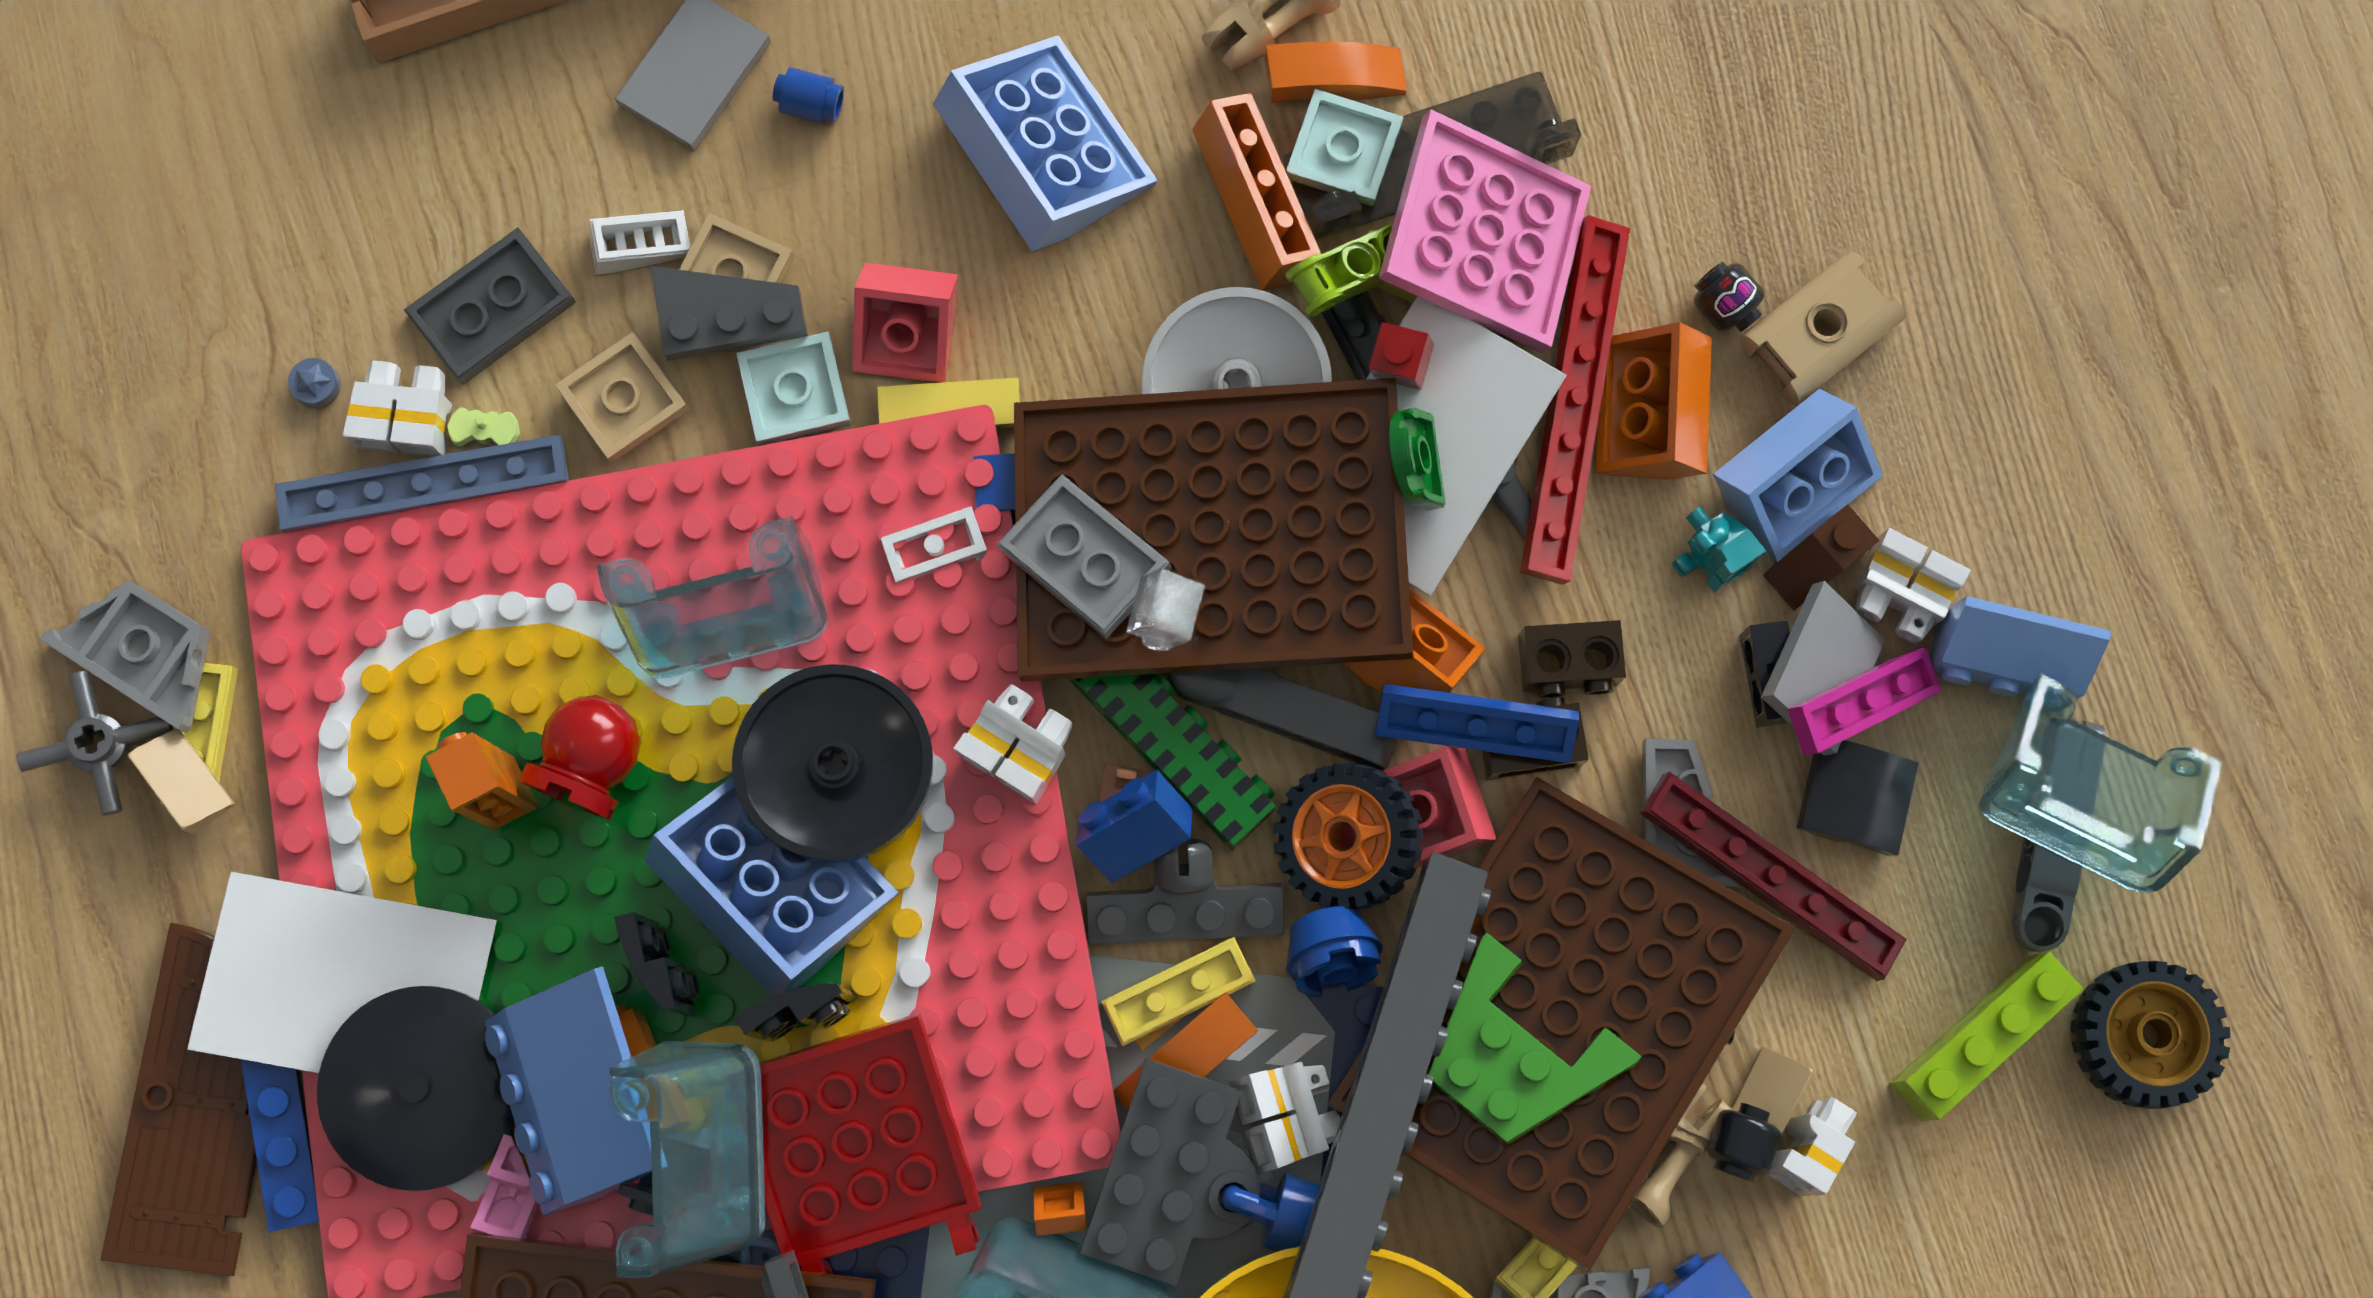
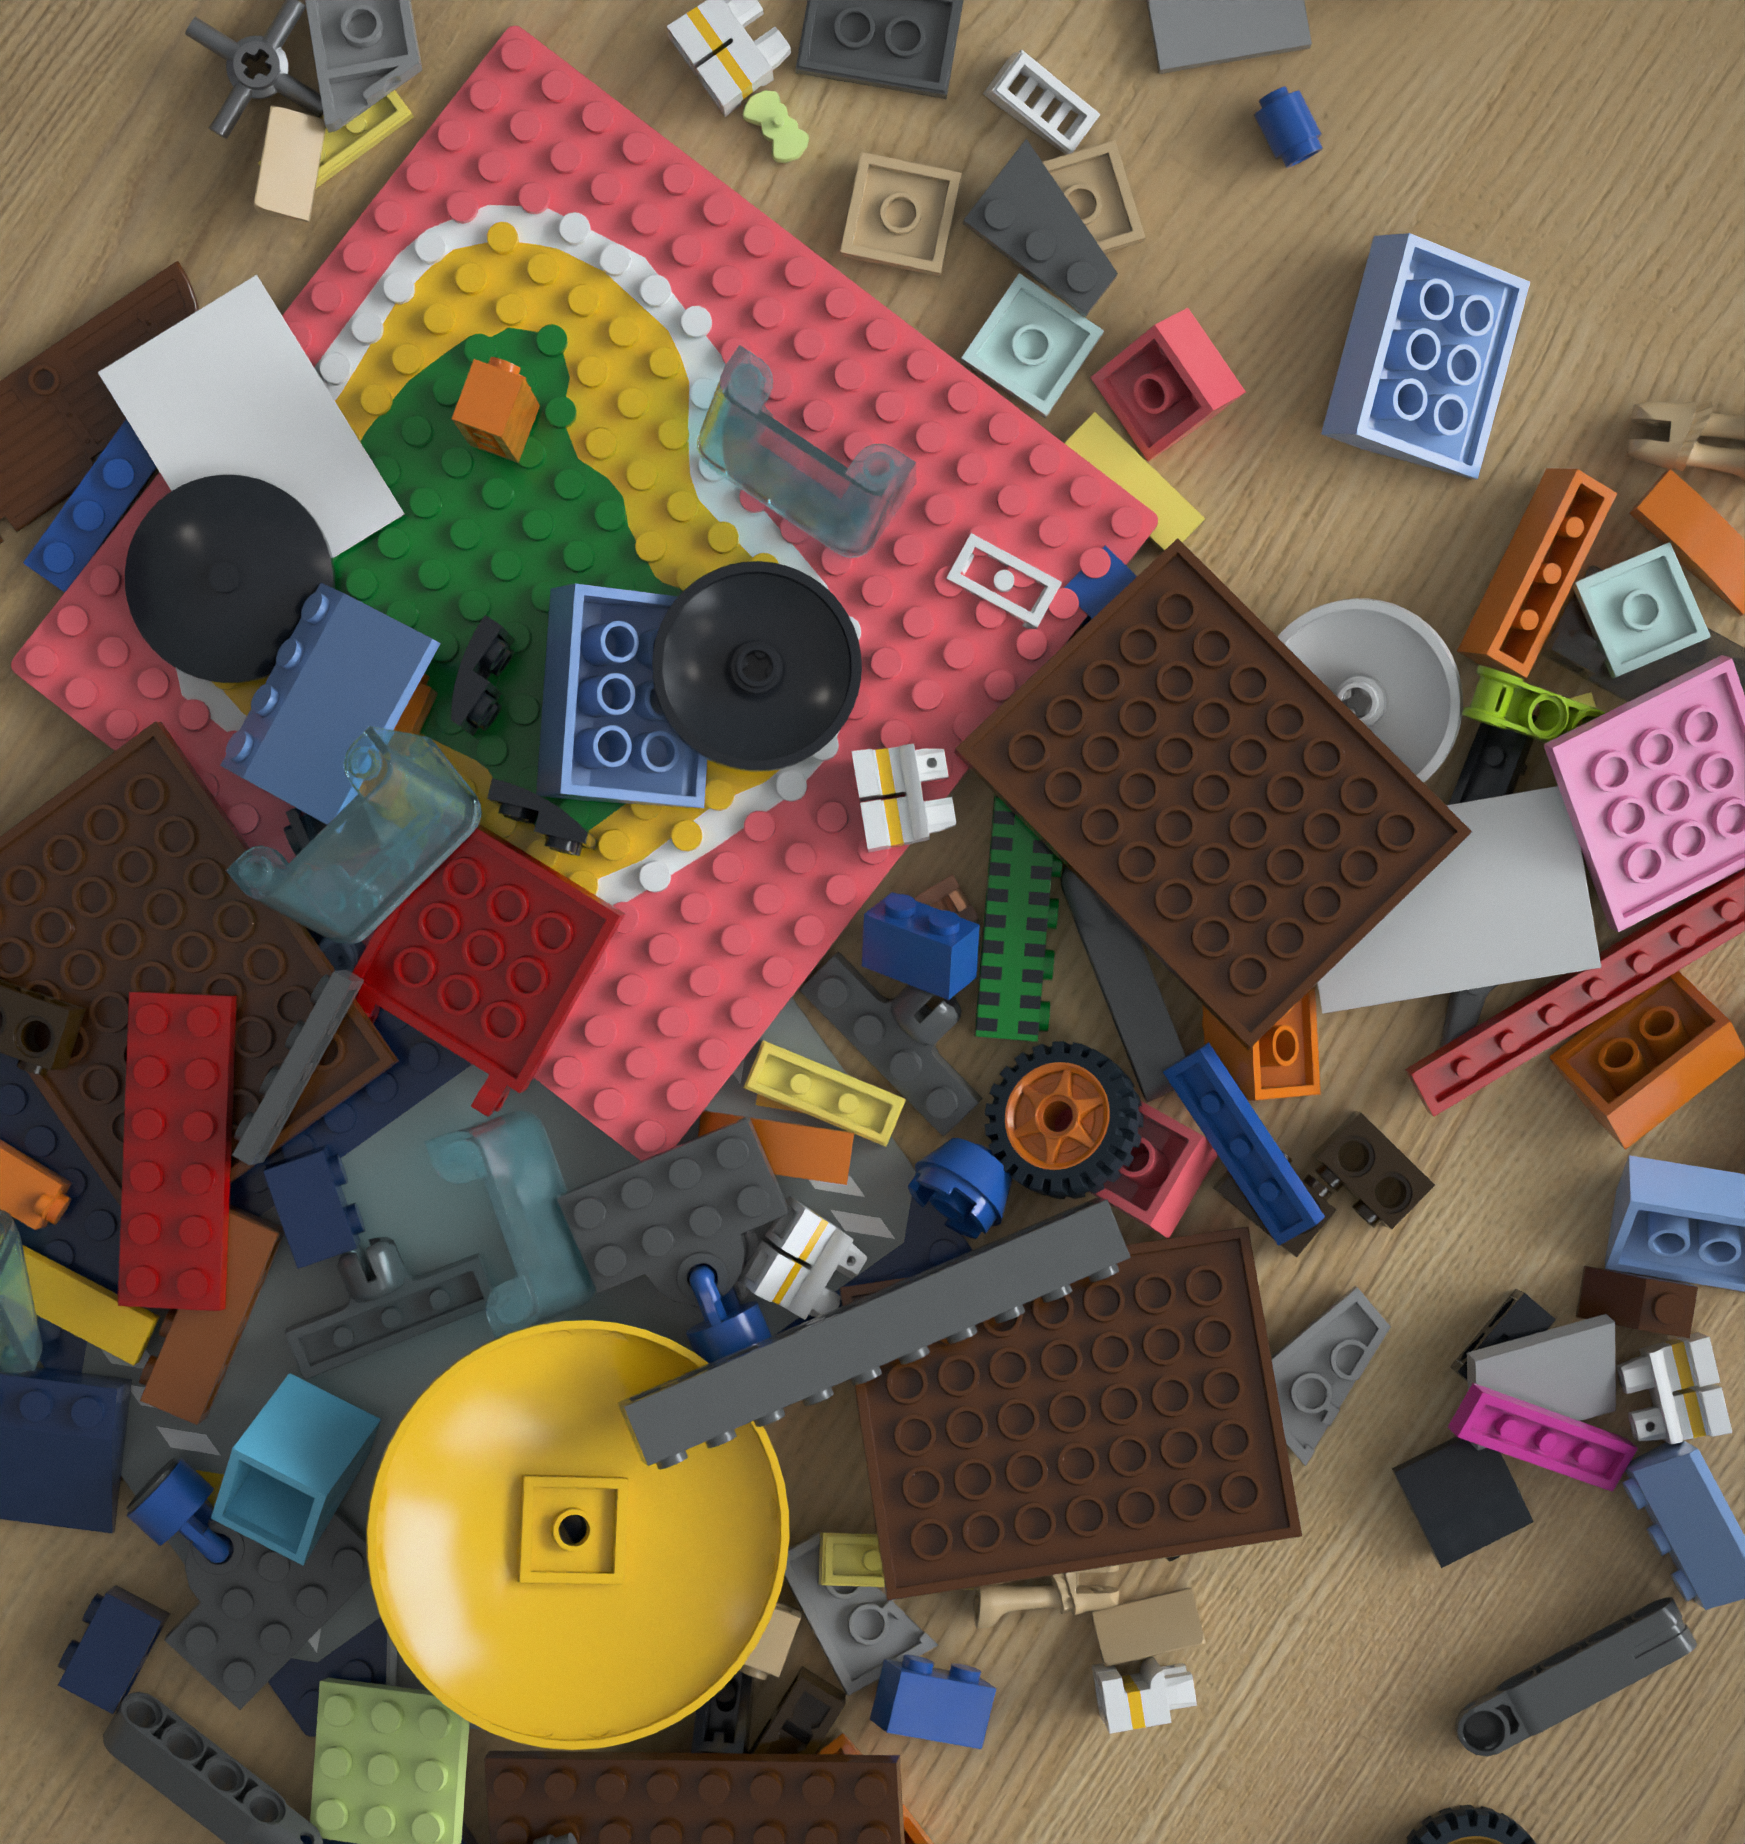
camera: 50 degrees right, 10 degrees up
(420, 483) = (687, 121): sand blue plate -> none
(508, 1202) = (210, 723): bright pink slope -> none
(585, 752) = (592, 466): red tile -> none
(1059, 1208) = (577, 1151): orange plate -> none
(1081, 555) = (1098, 713): light grey tile -> none
(1165, 609) = (1108, 821): clear brick -> none
(1401, 355) = (1496, 819): red brick -> none
(1416, 458) = (1420, 906): green tile -> none
(1504, 1071) = (984, 1401): bright green wing -> none
(1720, 548) = (1572, 1212): teal piece -> none
(1744, 1142) = (1097, 1636): black head -> none
(1773, 876) = (1334, 1482): dark red tile -> none
(1986, 1036) = (1354, 1757): lime brick -> none
(2098, 797) = (1629, 1686): clear light blue windscreen -> none

